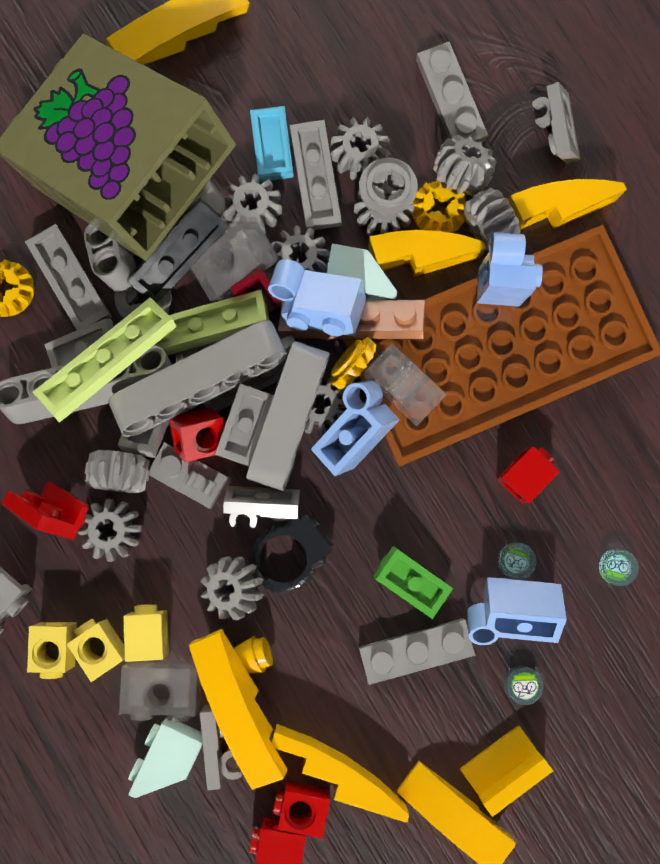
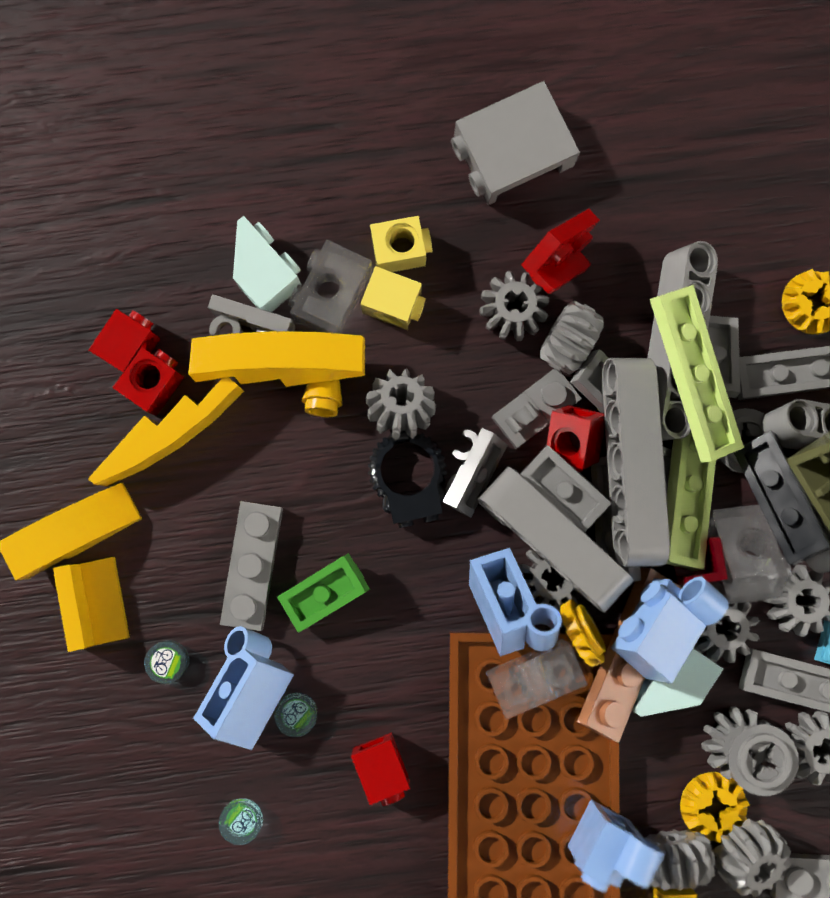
camera: 115 degrees right, 0 degrees up
(38, 660) = (414, 182): light yellow brick -> none
(423, 250) = (674, 767): yellow slope -> none

